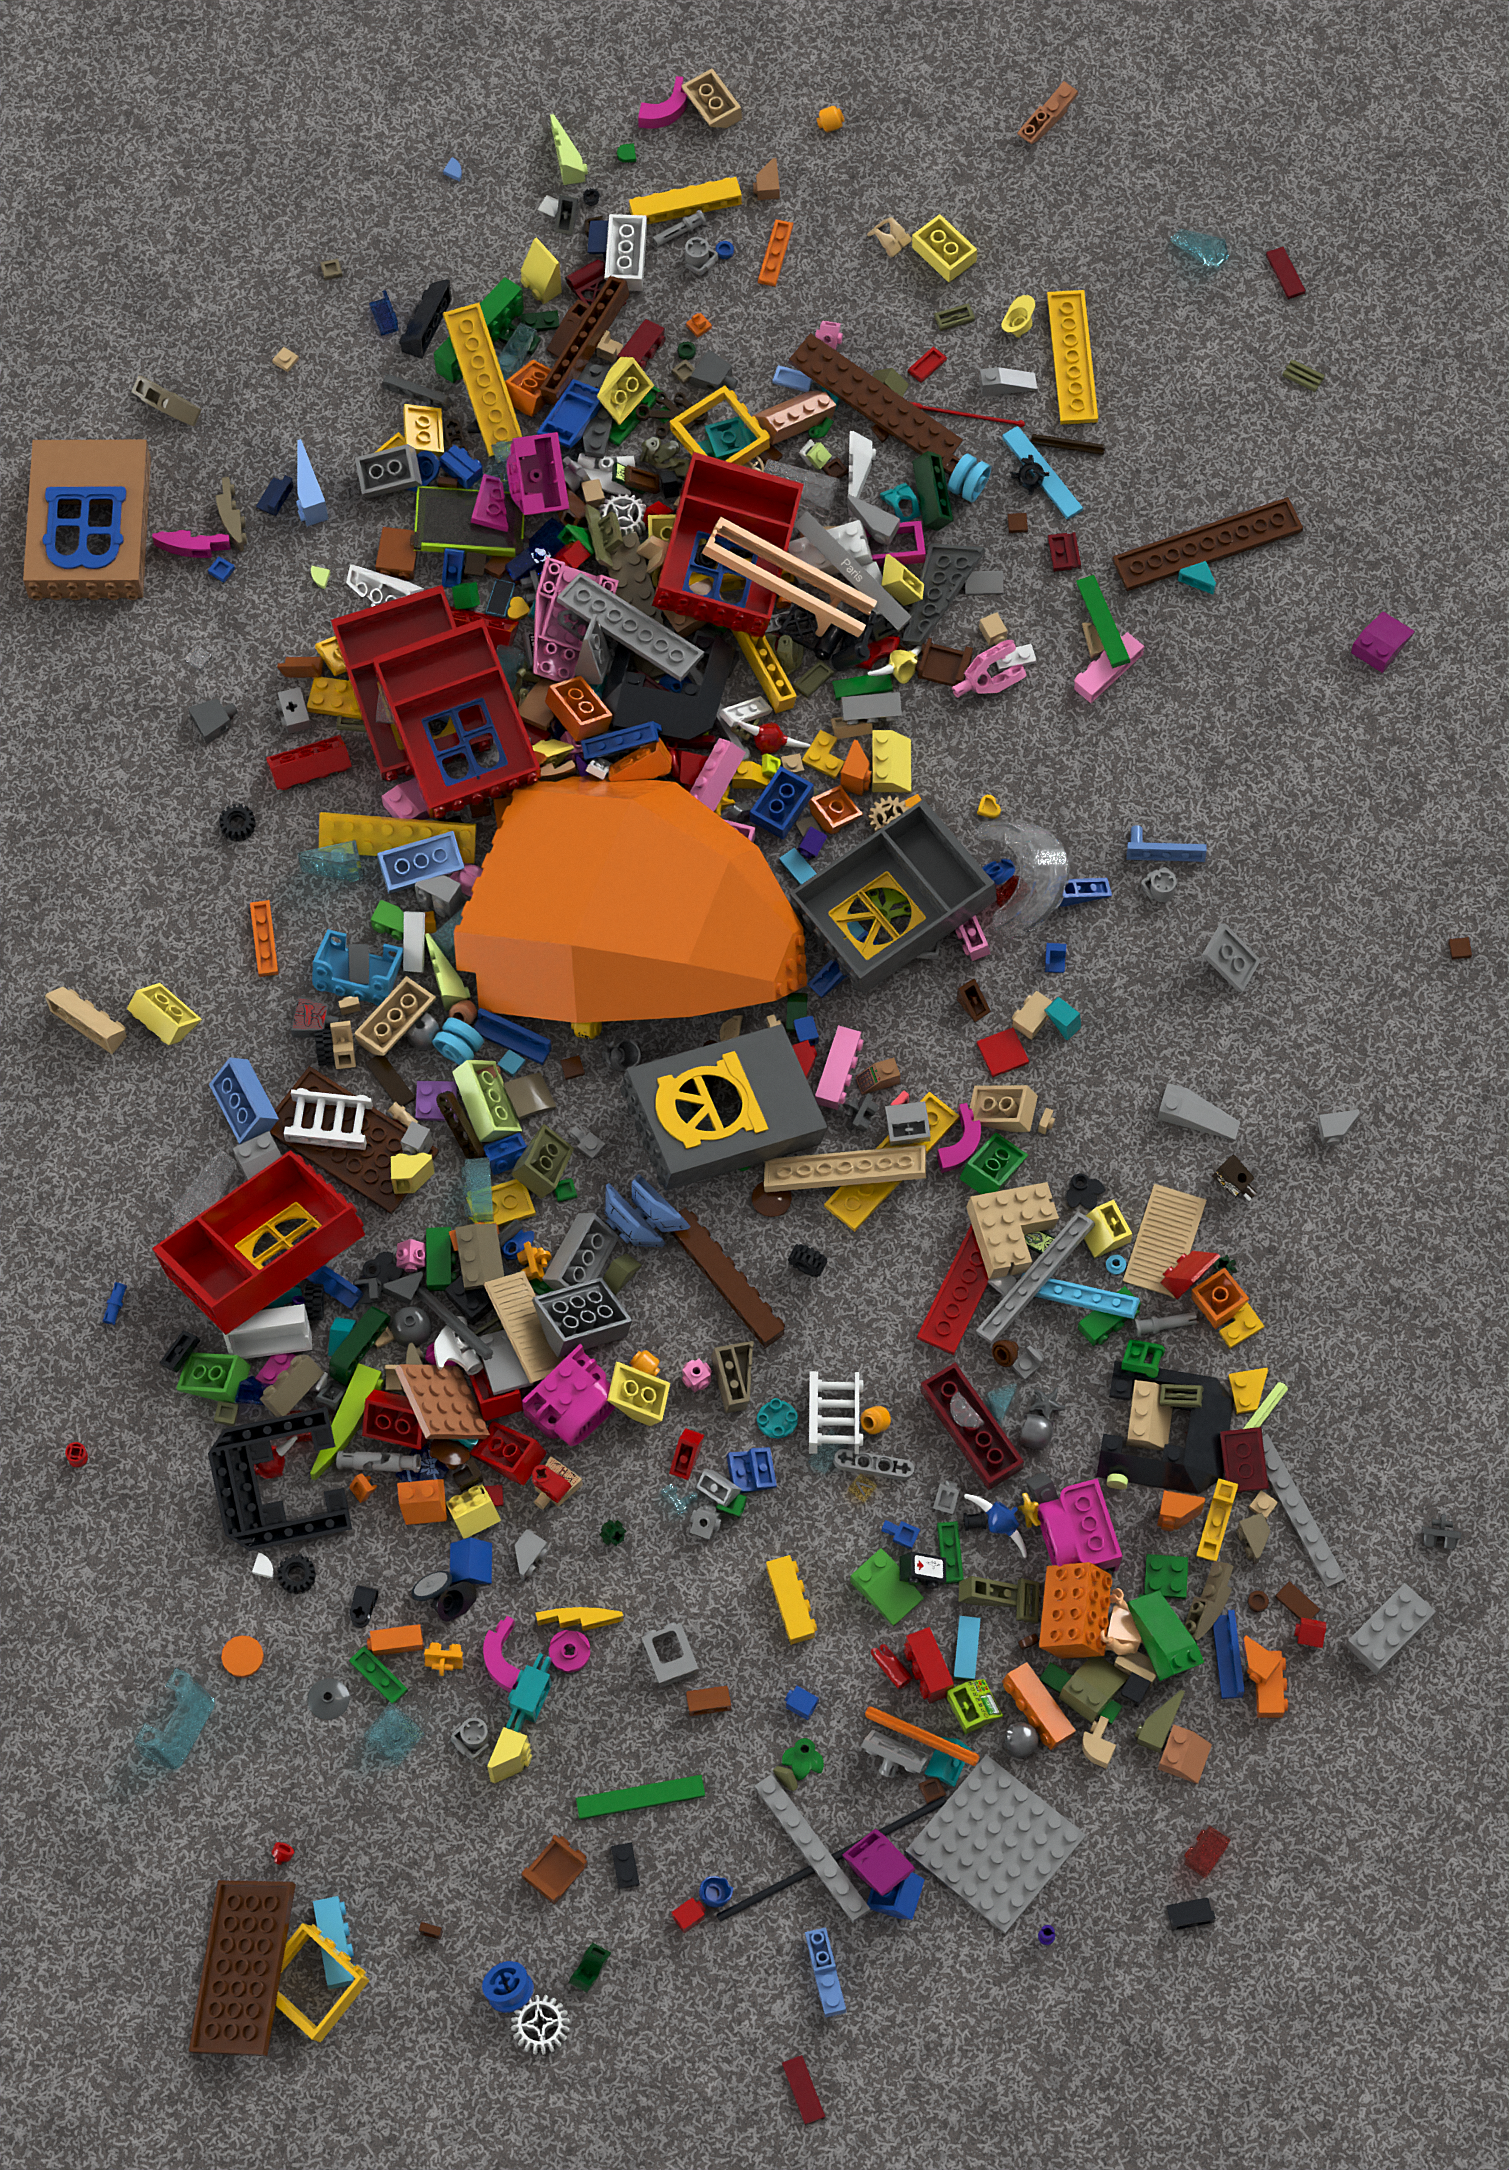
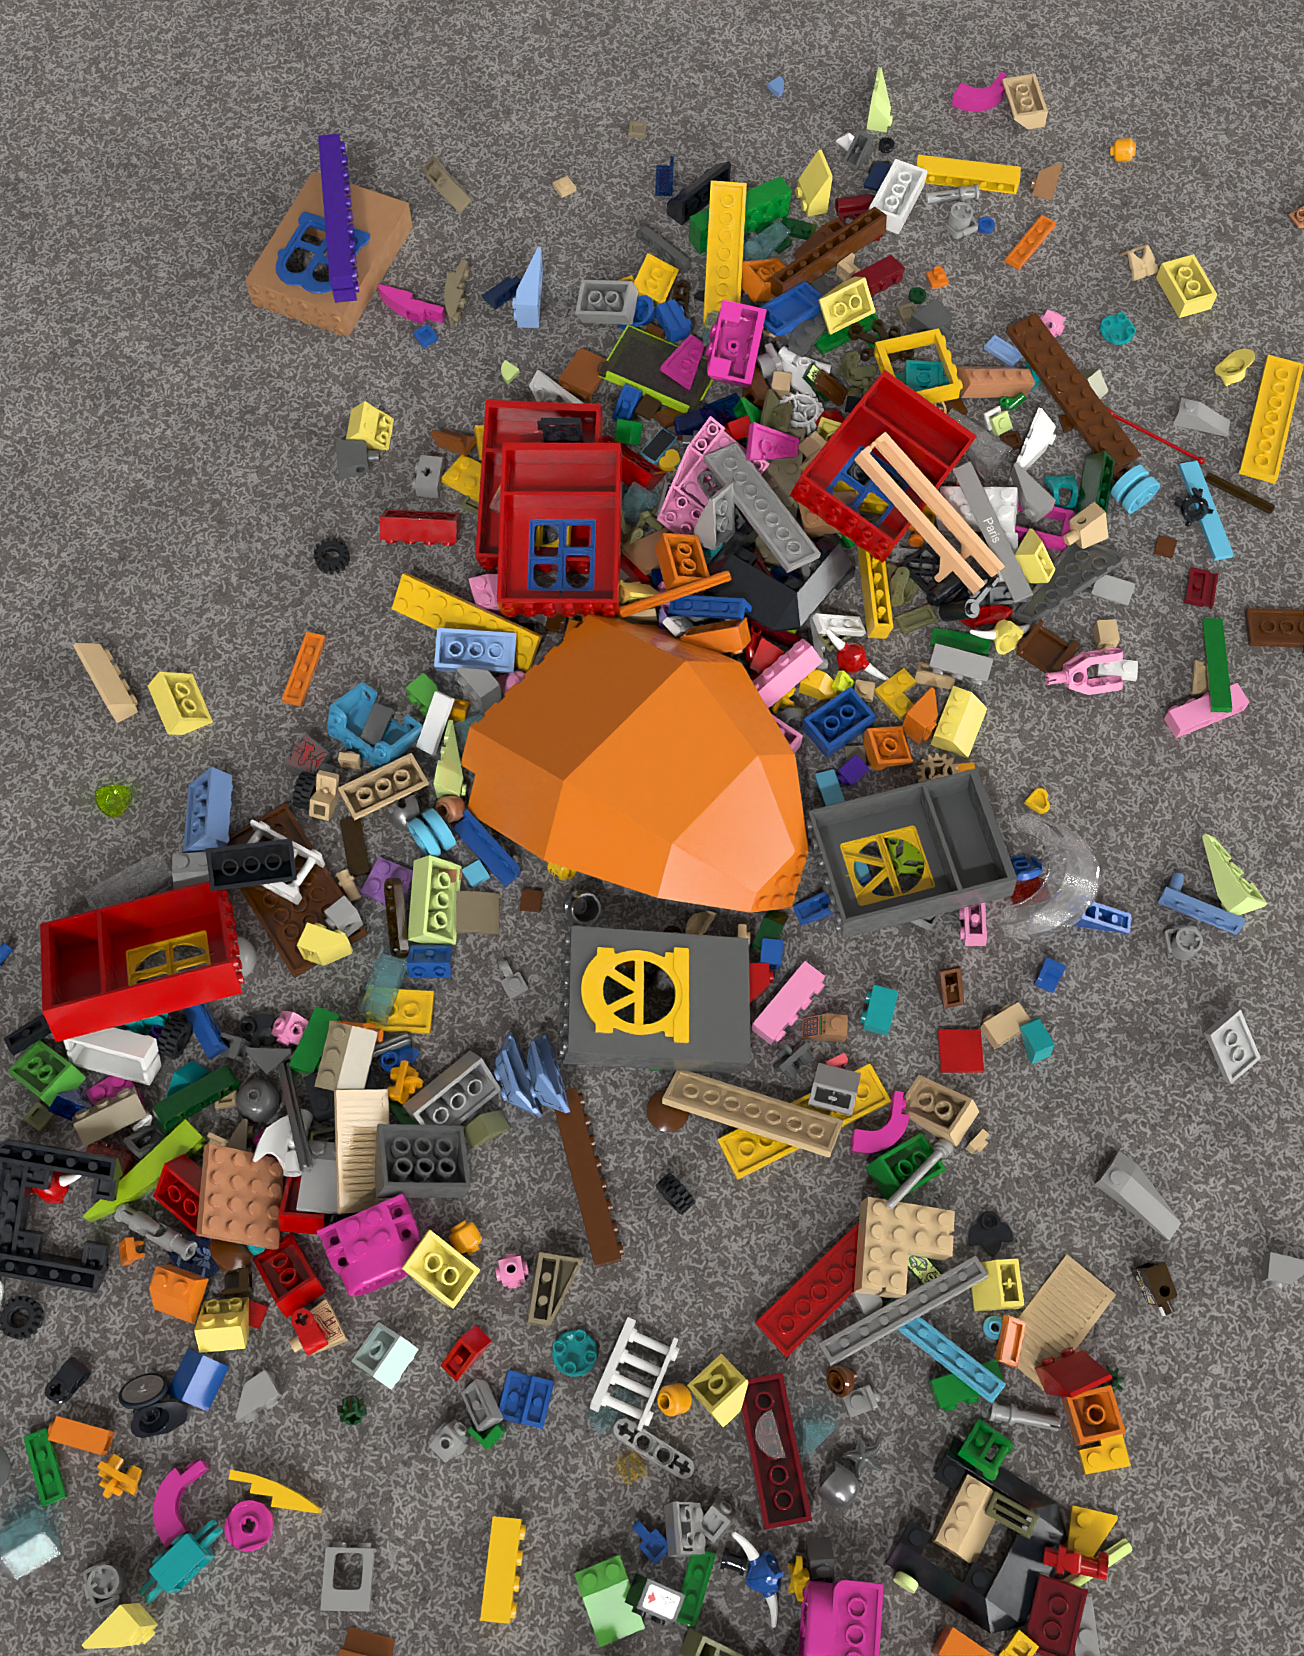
camera: 20 degrees right, 0 degrees up
(91, 483) = (338, 218): none -> dark purple piece
(149, 1122) = (113, 799): none -> clear neon green helmet
(212, 681) = (371, 426): none -> light yellow slope
(314, 1126) = (251, 864): none -> black slope
(333, 862) = (400, 622): clear light blue slope -> none
(413, 629) = (559, 436): none -> black piece
(543, 1162) = (459, 984): olive slope -> none
(565, 1190) = (469, 1020): green tile -> none
(585, 739) = (674, 594): none -> orange axle
(612, 561) = (770, 444): none -> dark pink wing
(620, 1481) = (385, 1355): none -> light aqua slope
(626, 153) = (932, 121): green tile -> none
(680, 1504) = (434, 1405): clear light blue piece -> none
(894, 316) = (1117, 329): none -> teal dish
(910, 1396) = (720, 1389): none -> light yellow slope
(920, 1044) = (880, 1010): none -> teal brick
(924, 1510) = (684, 1529): none -> light grey slope
(927, 364) = (1132, 380): red tile -> none
(938, 533) = (1087, 527): none -> tan torso
(943, 325) = (1172, 351): olive tile -> none
(1017, 1140) = (942, 1149): none -> light grey piece
(1132, 1268) = (1010, 1341): none -> orange tile
(1186, 822) = (1232, 889): none -> yellowish green wedge
(1244, 1410) = (1076, 1562): none -> red hips

